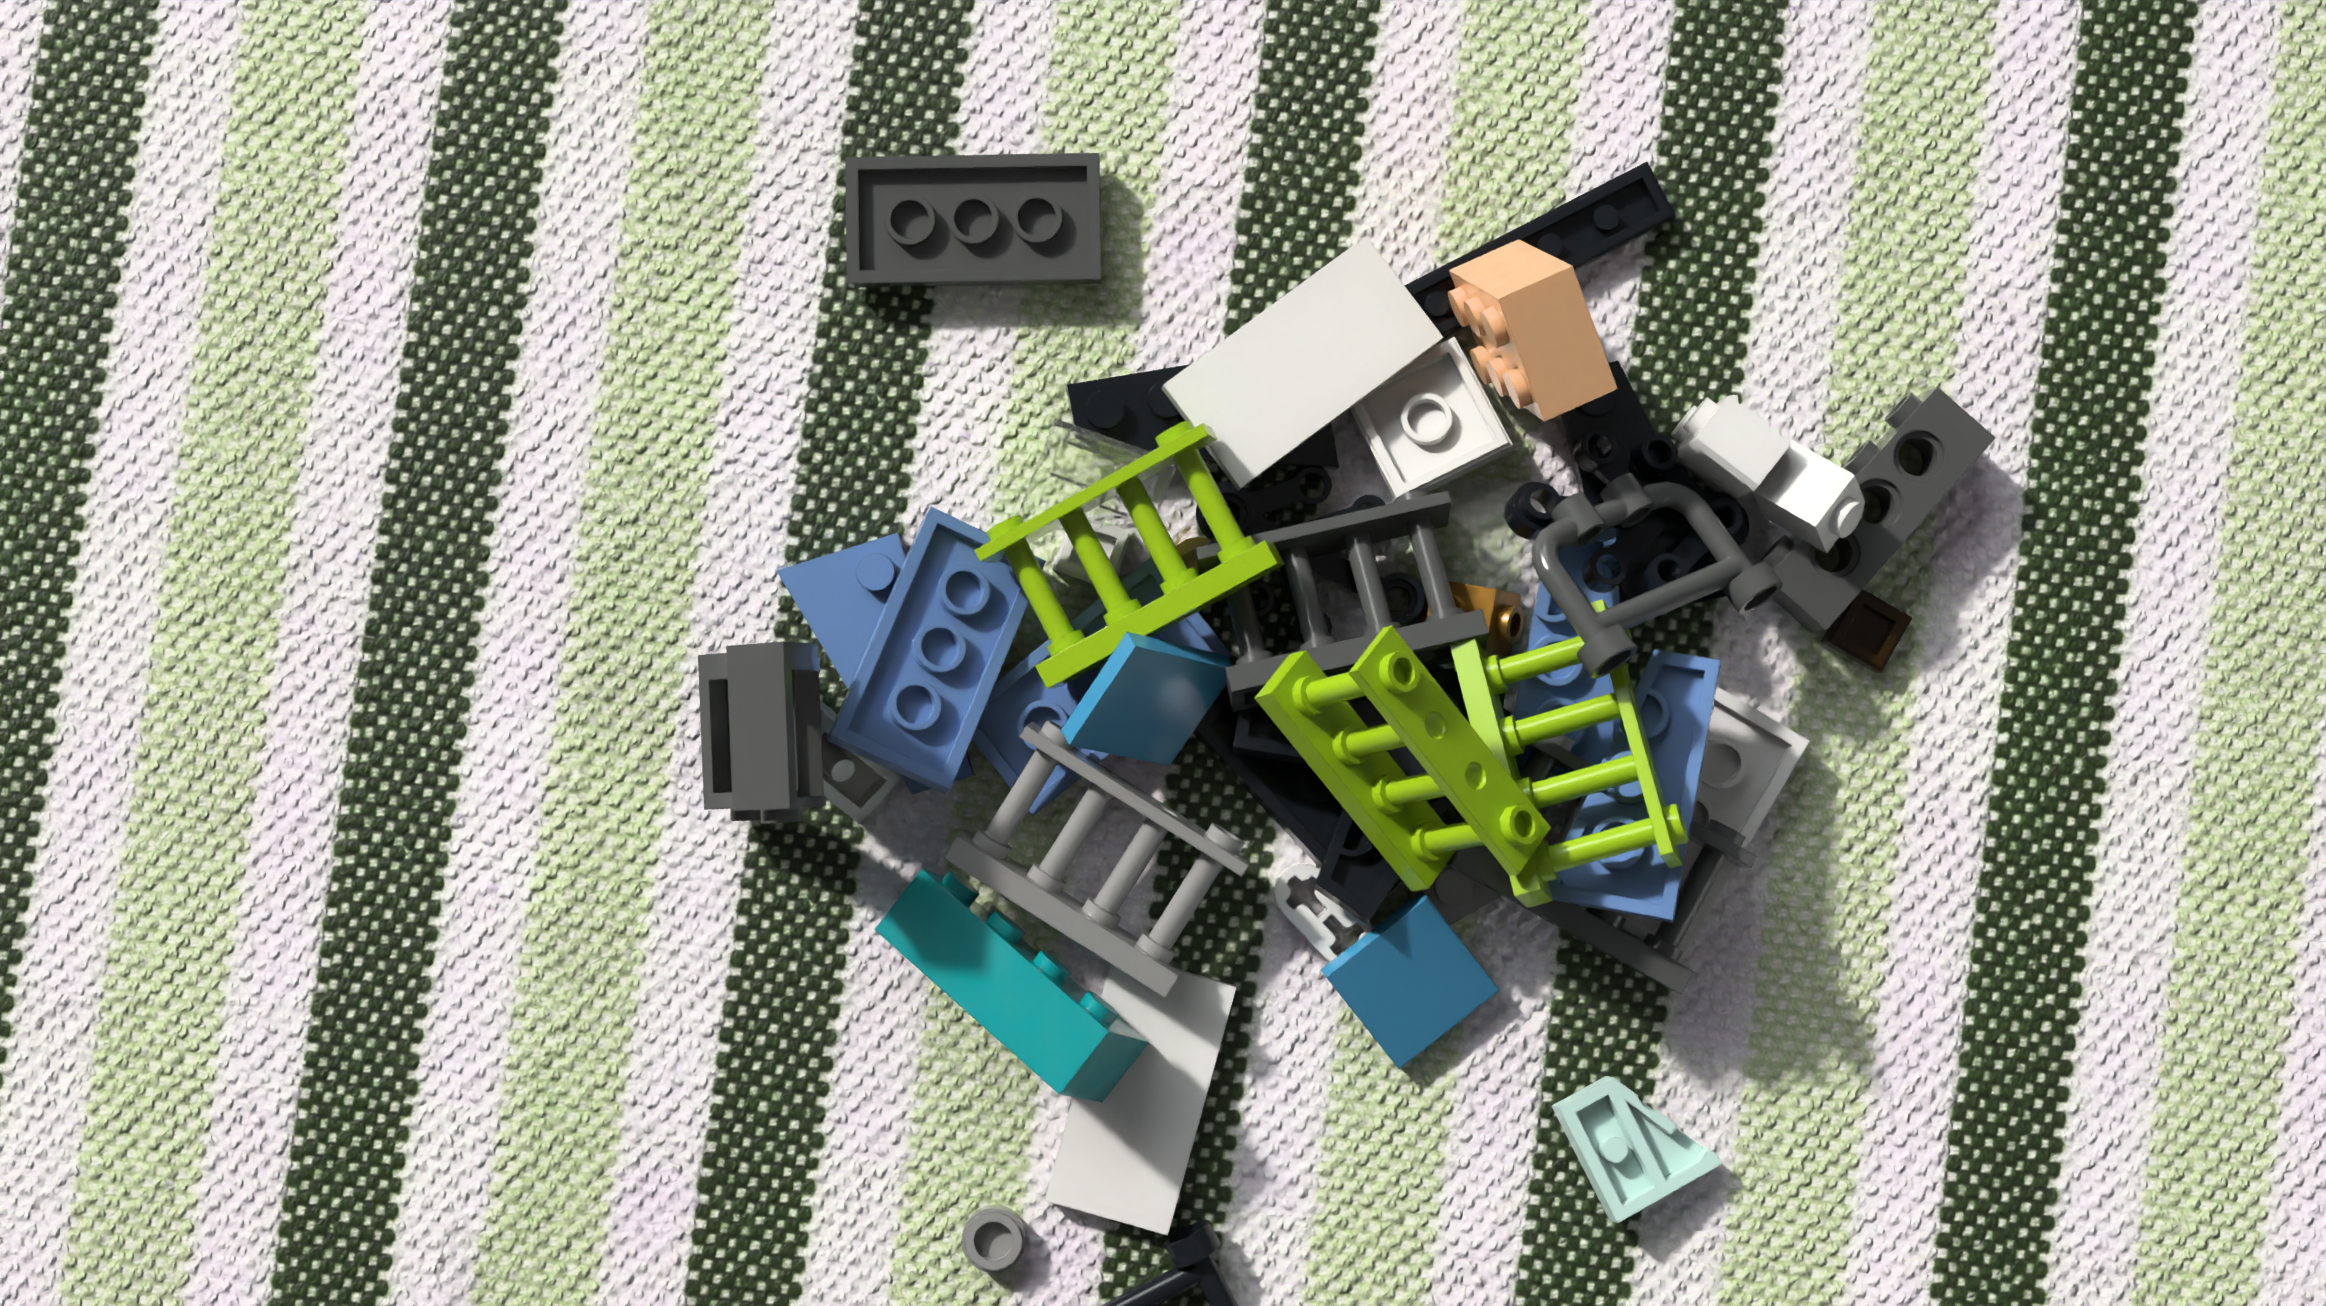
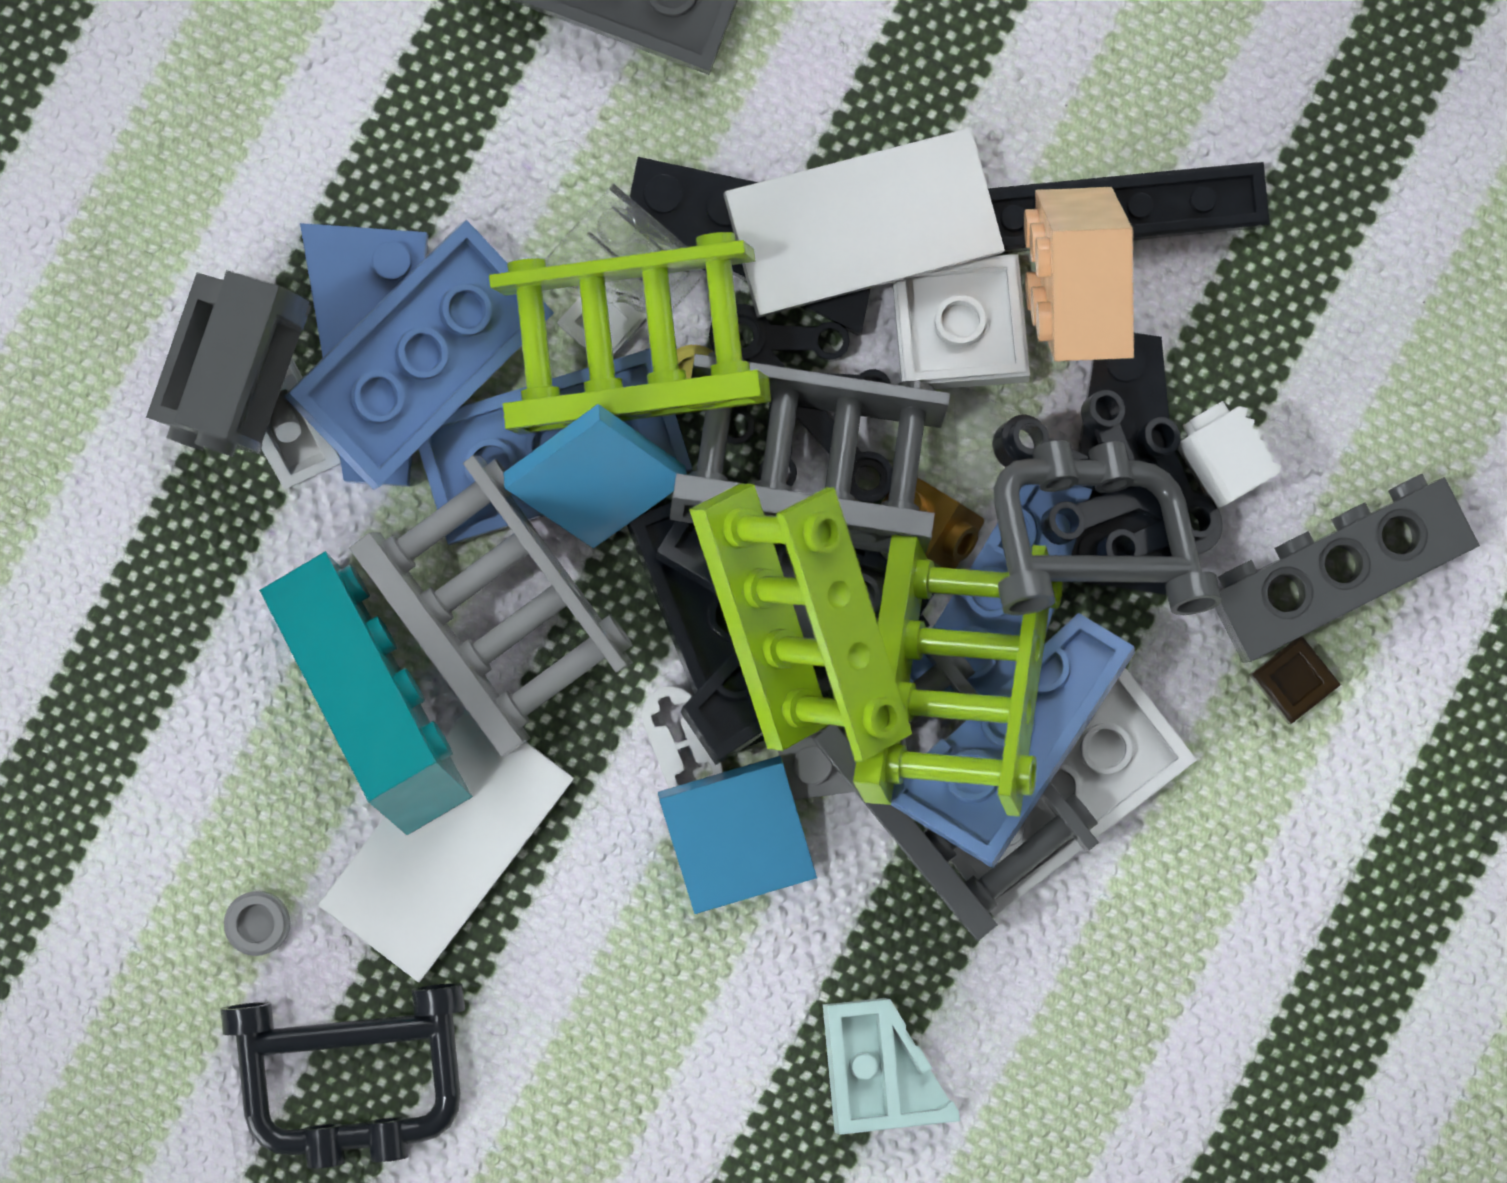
camera: 20 degrees right, 0 degrees up
(1811, 497) = (1281, 530): white brick -> none

